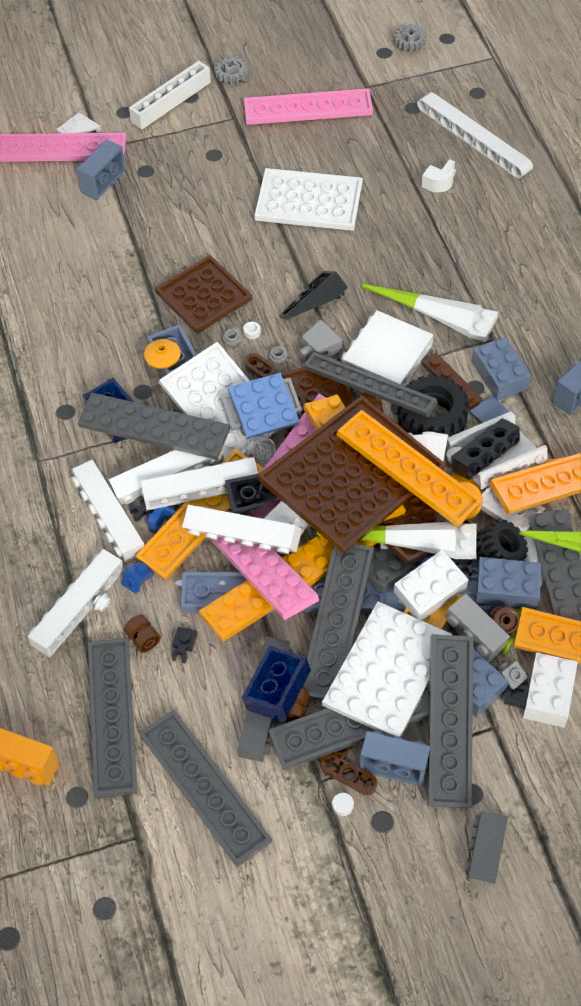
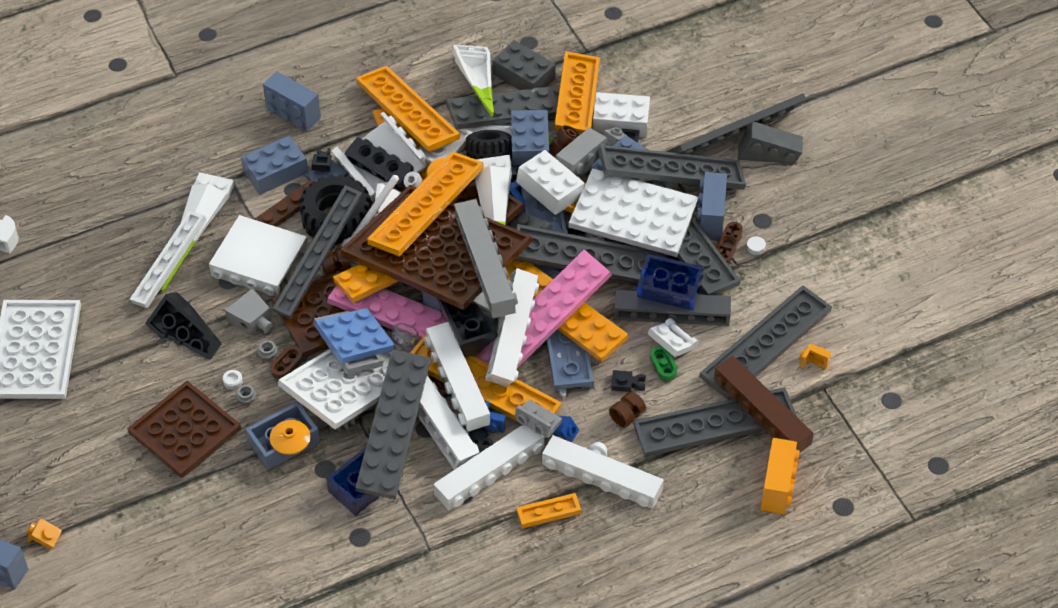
camera: 100 degrees left, 5 degrees down
(47, 553) = (548, 510): none -> light orange plate
(109, 756) = (761, 403): none -> reddish brown brick
(121, 204) = (43, 533): none -> light orange bracket
(139, 546) = (537, 418): none -> light grey bracket
(172, 836) = (815, 355): none -> light orange bracket
(195, 679) = (663, 365): none -> green plate
(220, 687) = (674, 344): none -> white plate
(312, 497) = (485, 258): none -> light grey brick
(390, 284) = (168, 259): none -> white plate
(414, 429) = (375, 207): none -> white piece
(452, 468) = (413, 179): none -> white plate
(501, 405) = (322, 160): none -> black plate
(522, 814) = (739, 125): none -> dark grey plate

